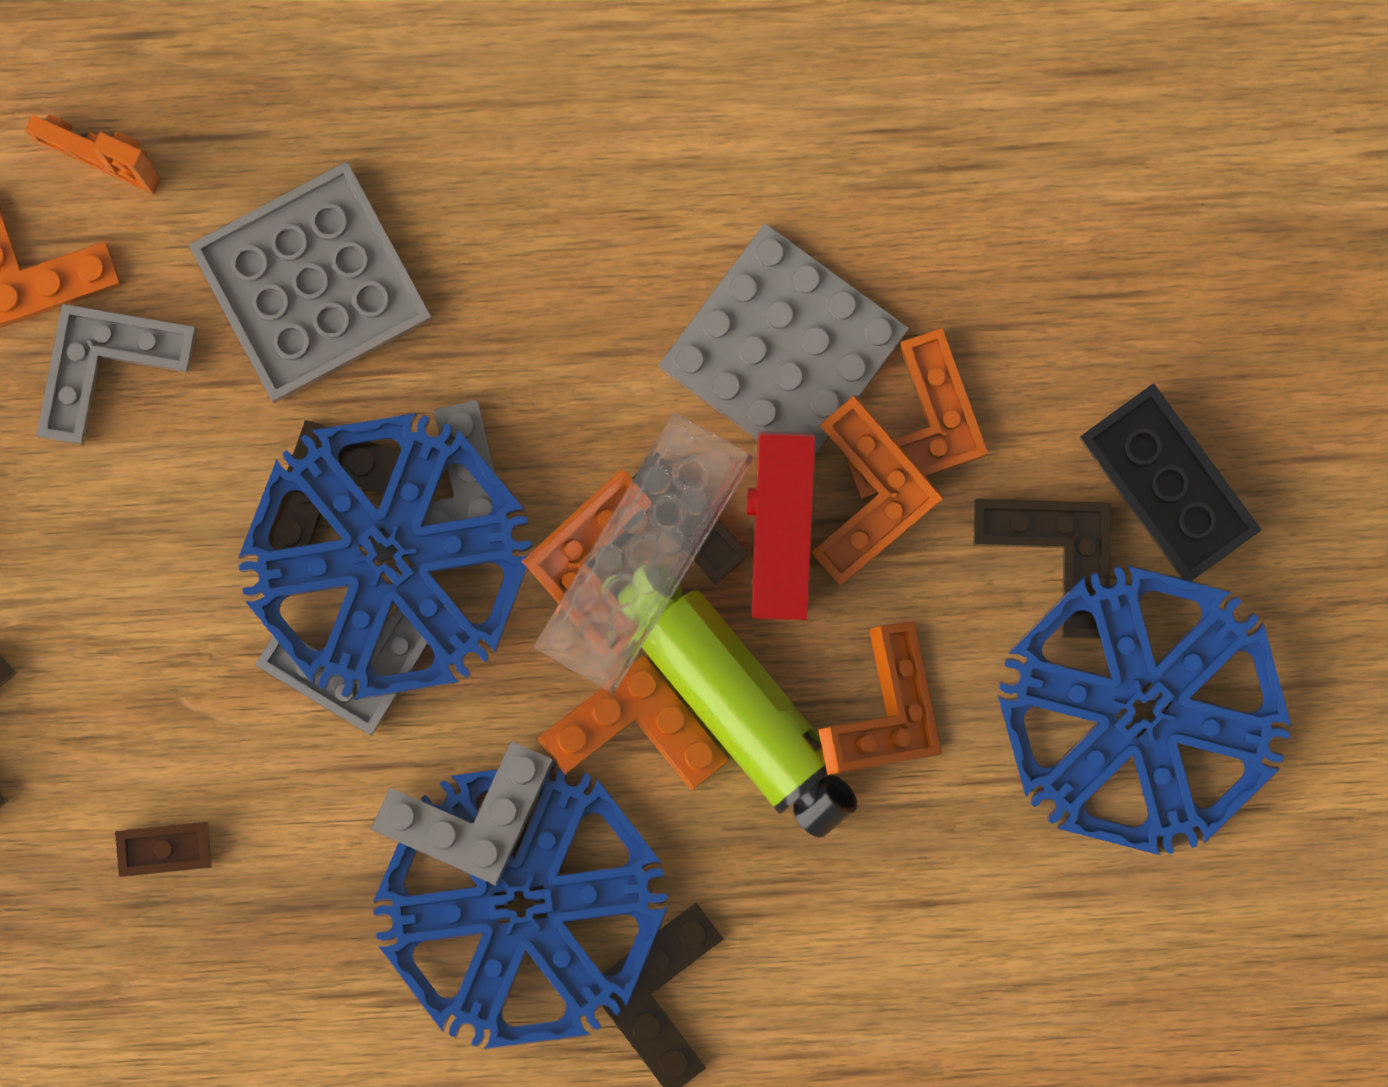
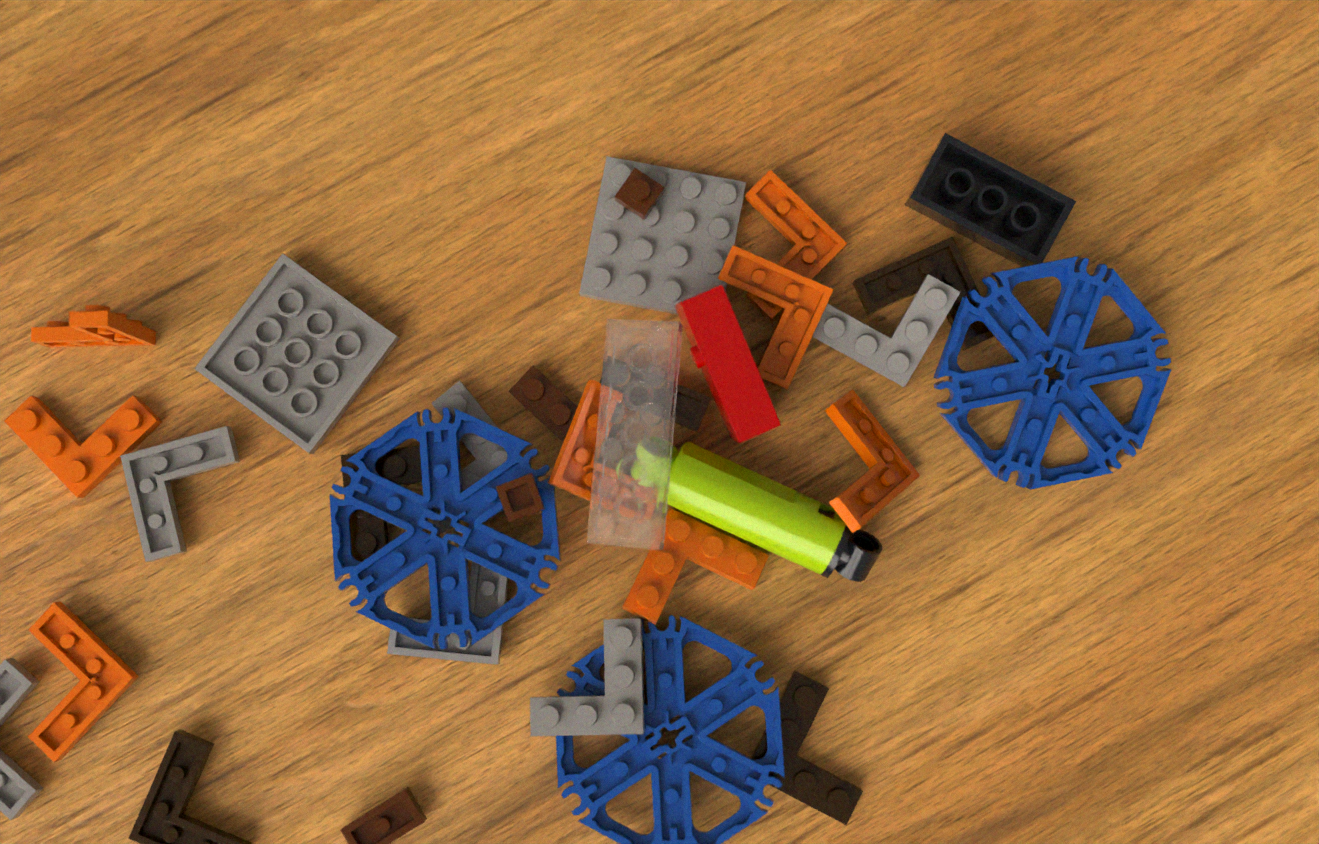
camera: 20 degrees left, 0 degrees up
(484, 563) = (520, 497): none -> reddish brown plate
(561, 469) = (545, 401): none -> reddish brown plate
(780, 285) = (639, 193): none -> reddish brown plate
(979, 605) = (894, 355): none -> light grey plate

